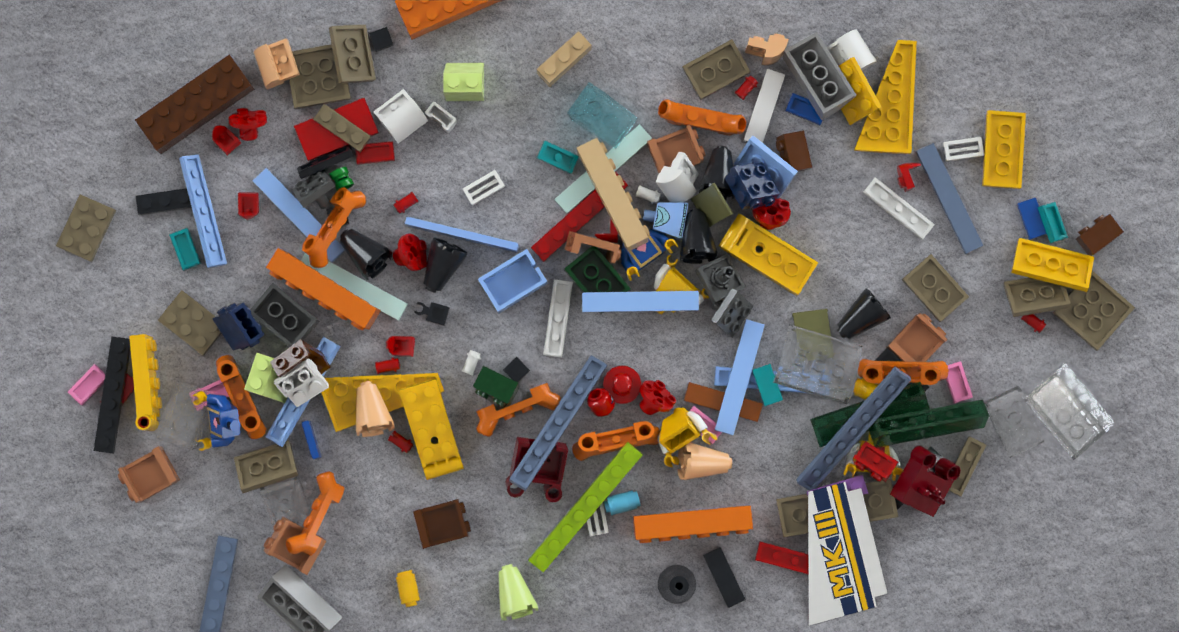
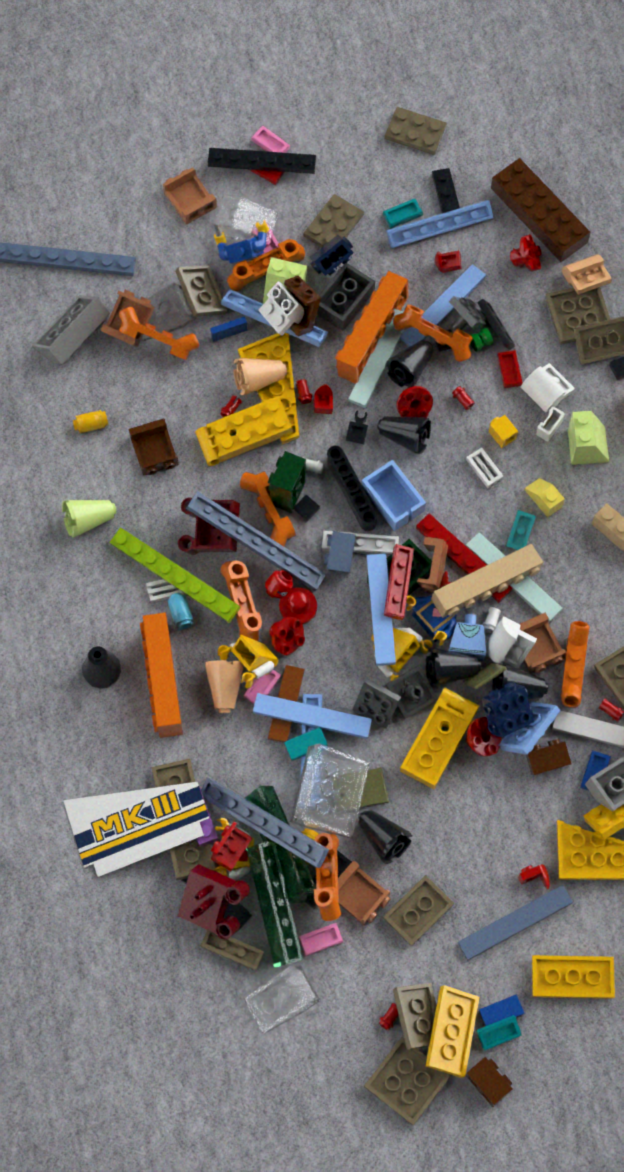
camera: 90 degrees right, 15 degrees down
(145, 381) = (276, 183): yellow hinge -> none
(225, 139) = (509, 237): red plate -> none
(319, 141) = (529, 333): red tile -> none
(342, 128) = (530, 336): dark tan plate -> none
(445, 165) = (503, 431): none -> yellow brick
(462, 234) = (436, 449): light blue tile -> none
(509, 323) = (351, 496): none -> black beam
(519, 130) = (545, 496): none -> light yellow slope
(570, 338) = (340, 552): none -> sand blue brick
(601, 115) = (567, 569): clear light blue slope -> none
(613, 281) = (398, 582): none -> tile
(724, 577) = (109, 713): black tile -> none
(782, 557) = (131, 767): red plate -> none
(898, 208) = (499, 870): white tile -> none
(947, 151) = (573, 952): white tile -> none
(1069, 411) = (295, 1051): clear slope -> none

